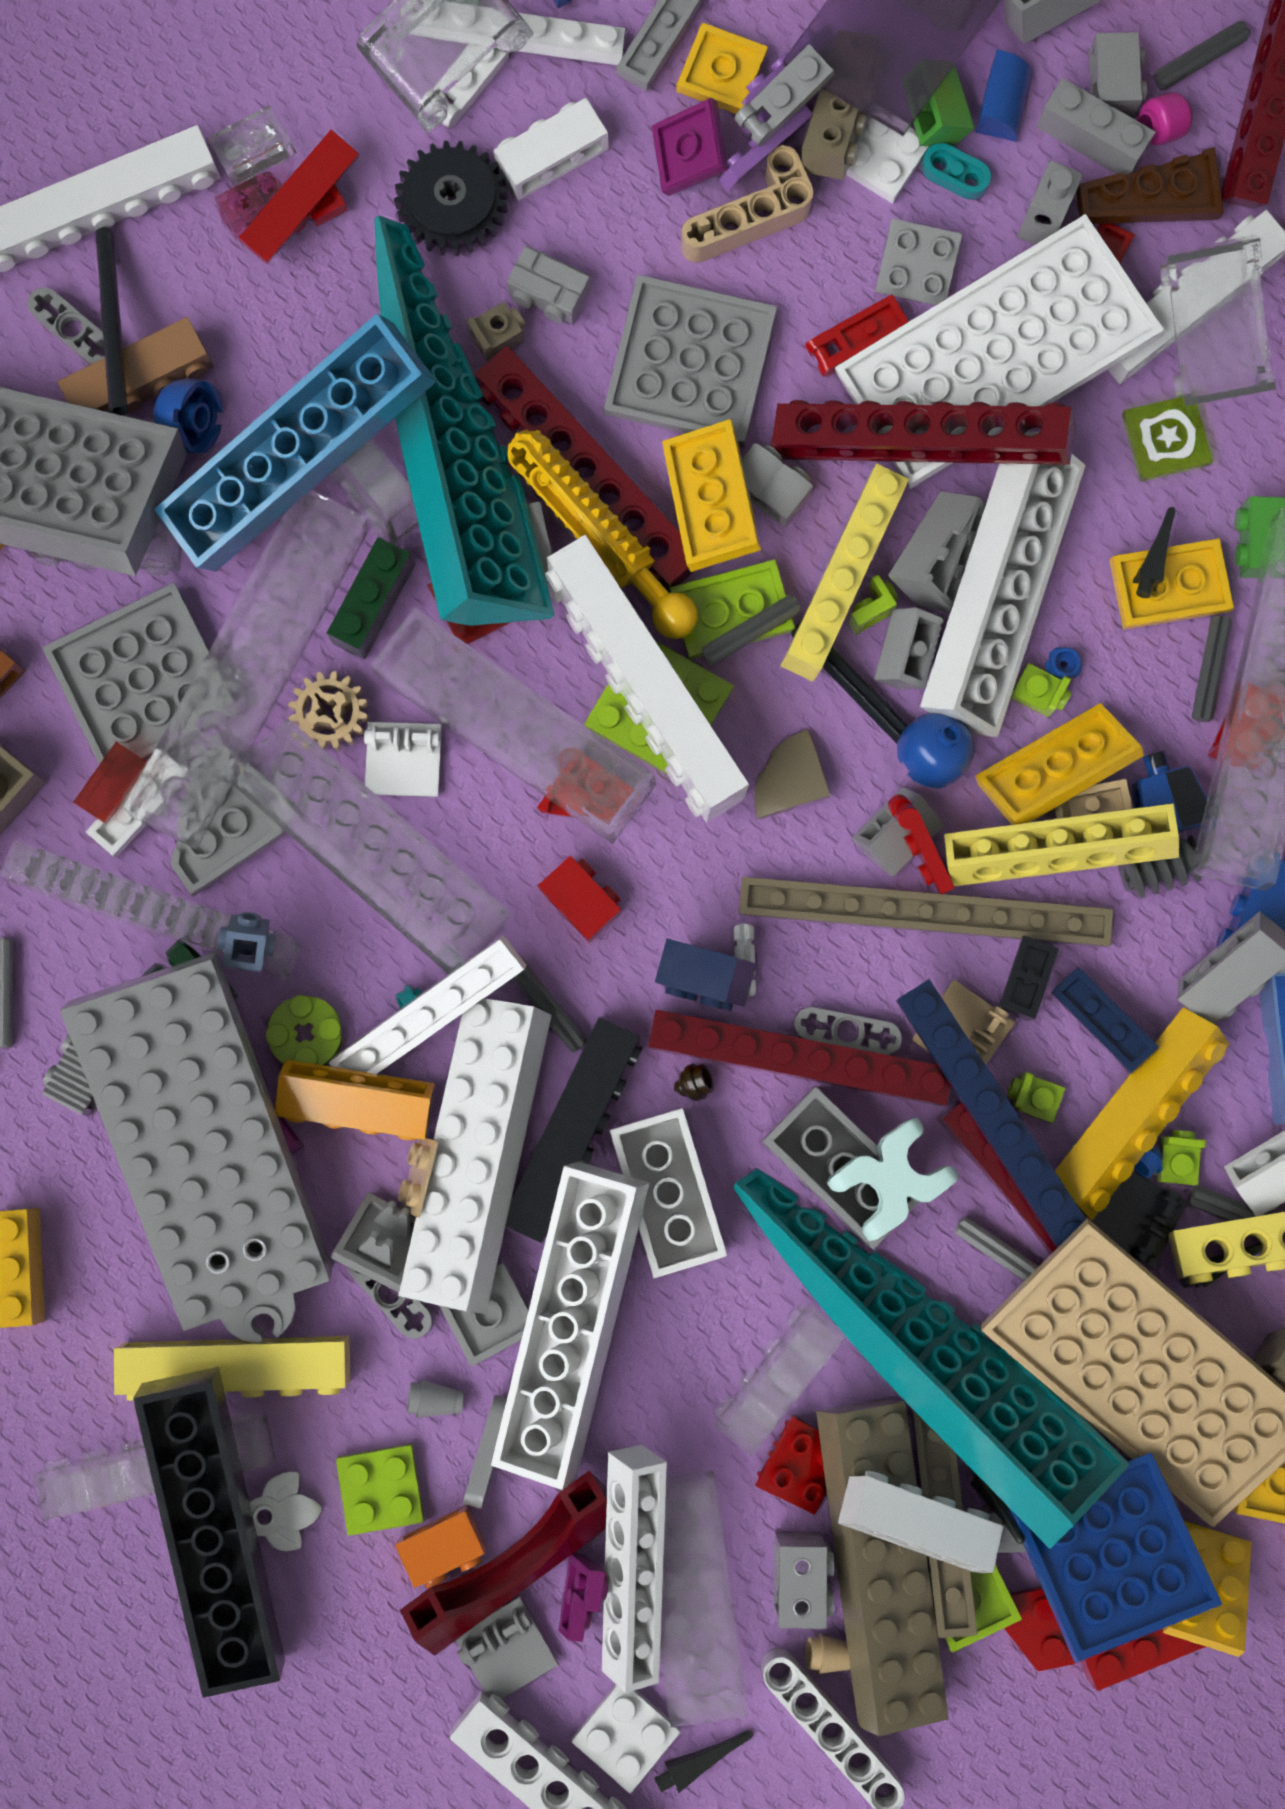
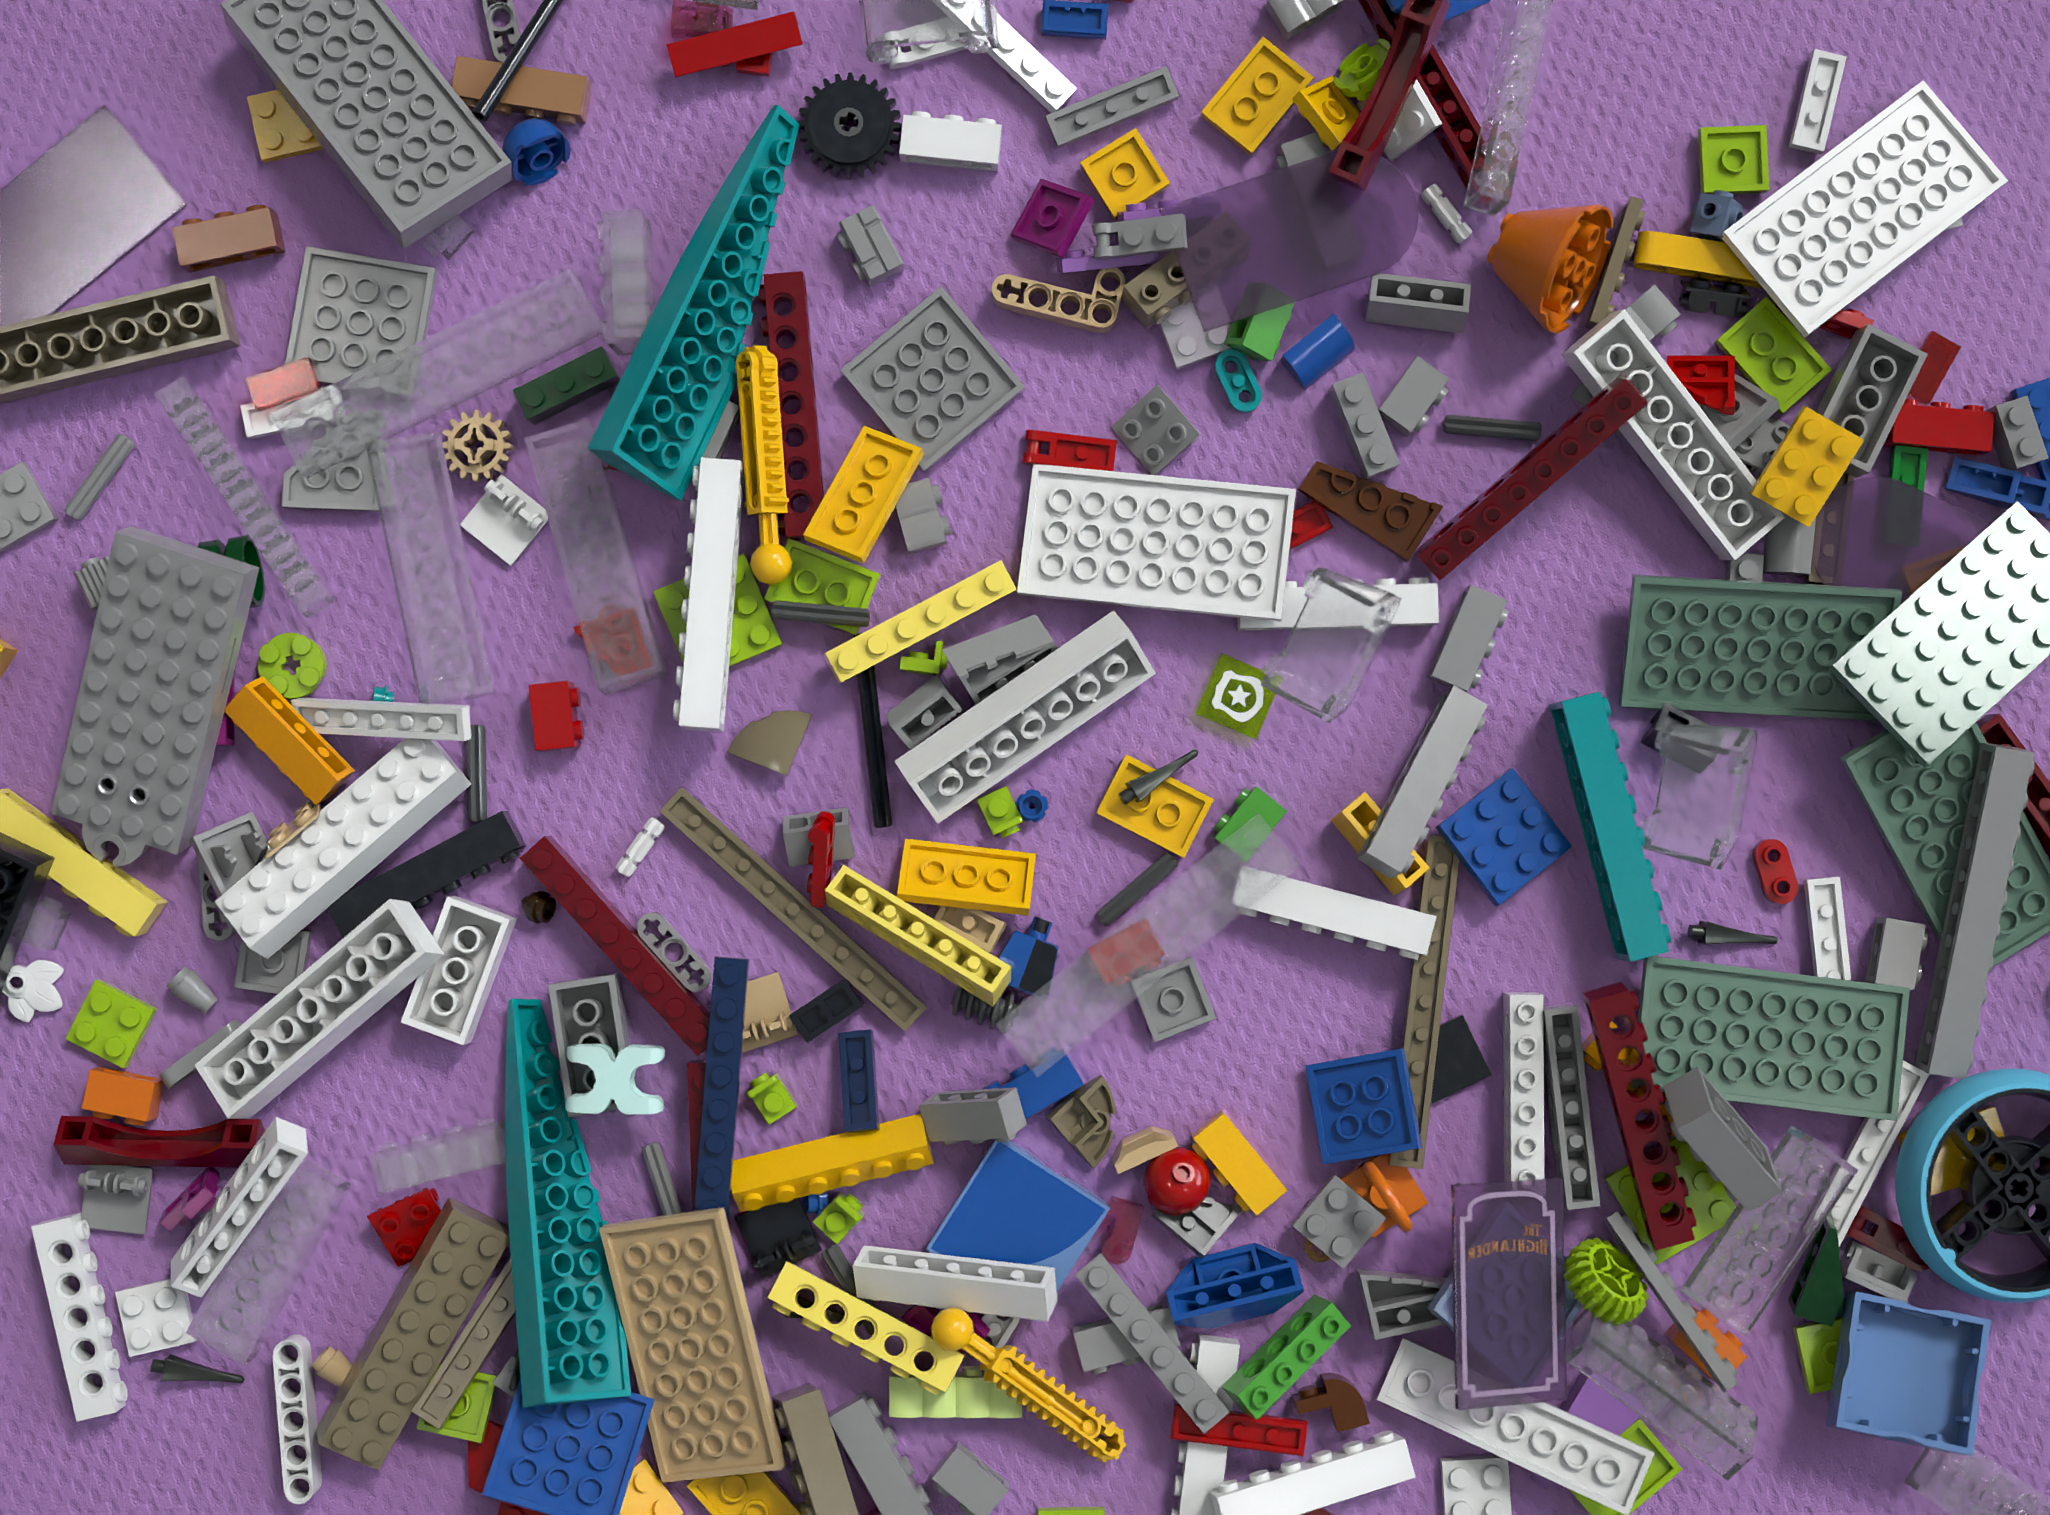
camera: 40 degrees right, 5 degrees up
(246, 942) = (286, 576): sand blue brick -> none
(295, 444) = (581, 240): dark azure brick -> none
(492, 340) = (797, 260): dark tan brick -> none
(703, 972) = (597, 837): dark blue brick -> none
(800, 1580) = (348, 1302): light grey piece -> none
(921, 1523) = (453, 1326): white brick -> none
(935, 750) = (885, 800): blue cylinder -> none
(937, 444) = (1123, 645): dark red brick -> none
(1051, 200) = (1283, 459): light grey torso -> none
(1168, 116) = (1422, 457): dark pink head -> none

